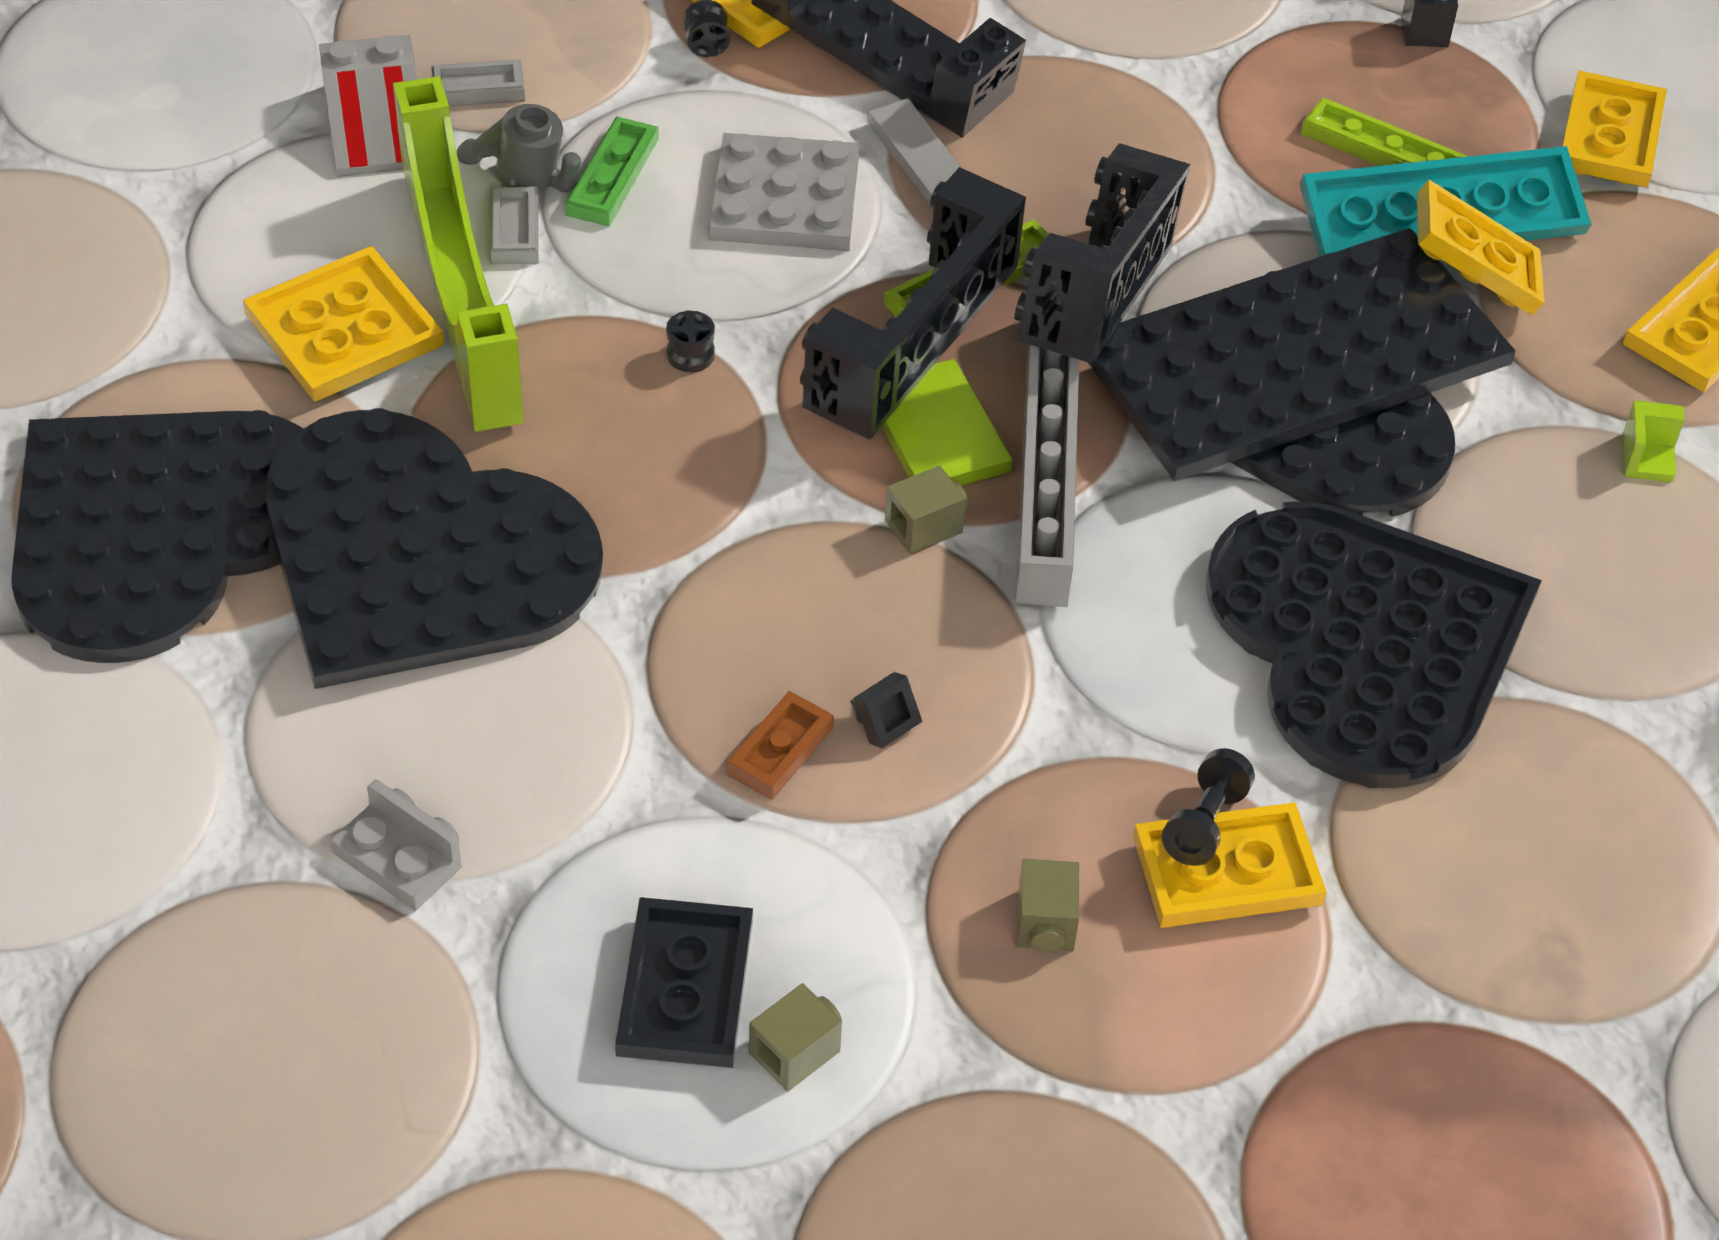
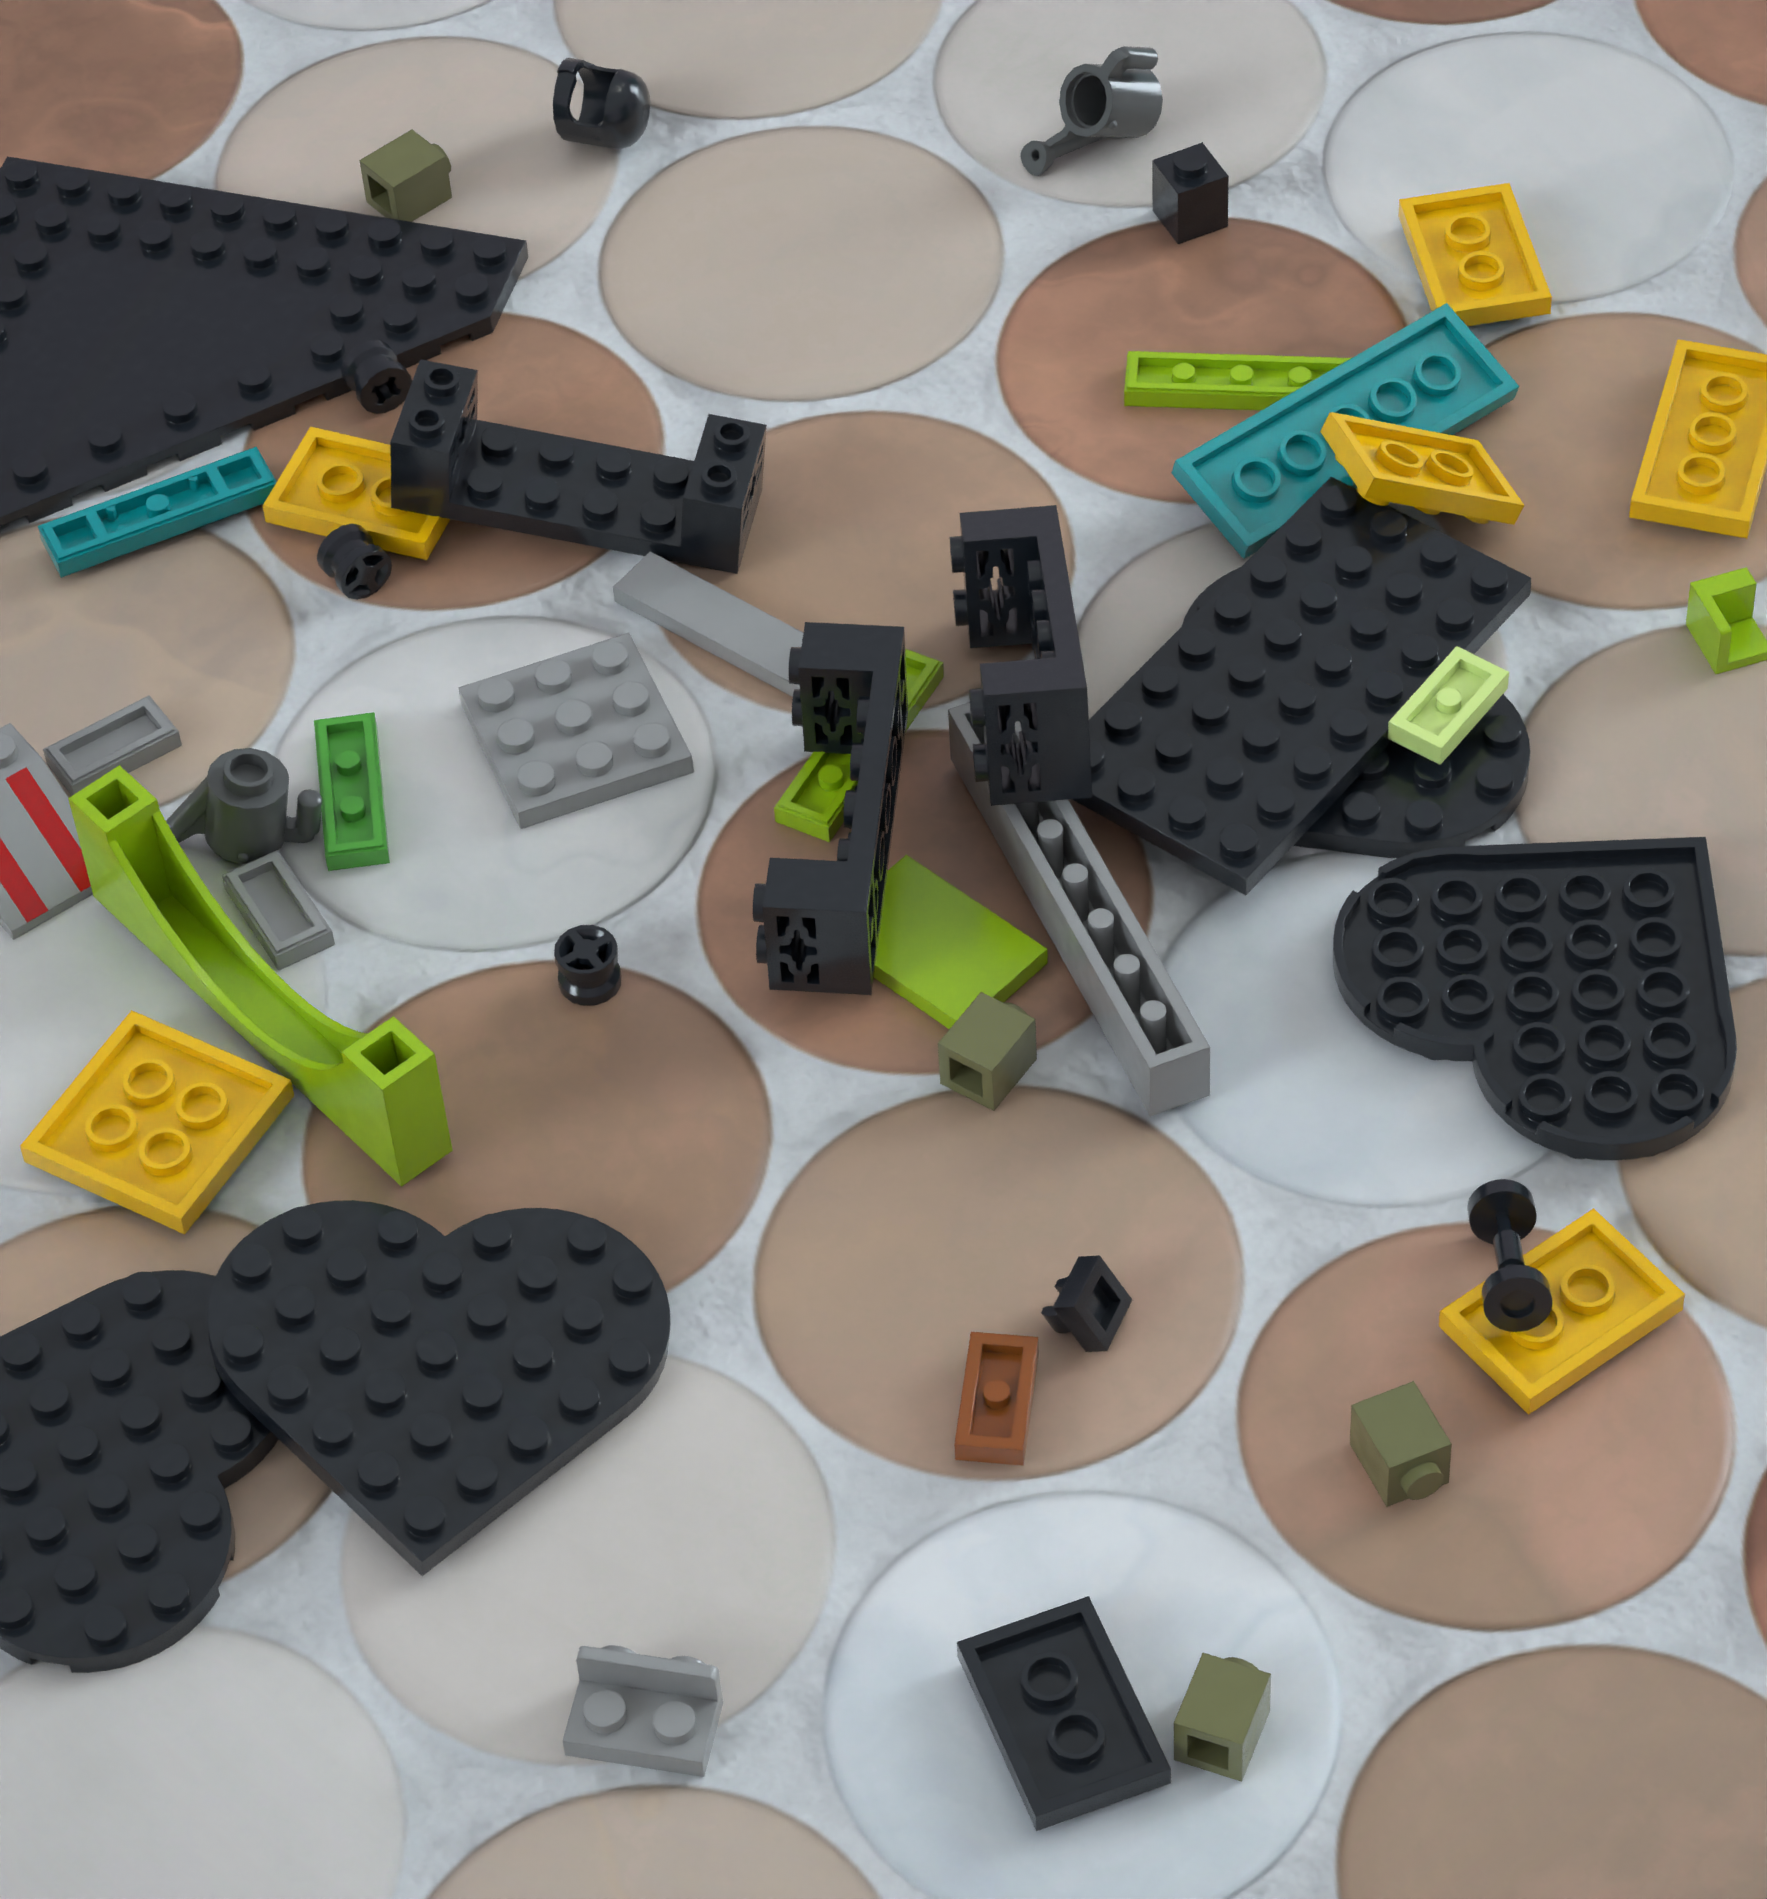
camera: 20 degrees left, 0 degrees up
(1399, 411) = (1448, 705): none -> yellowish green plate

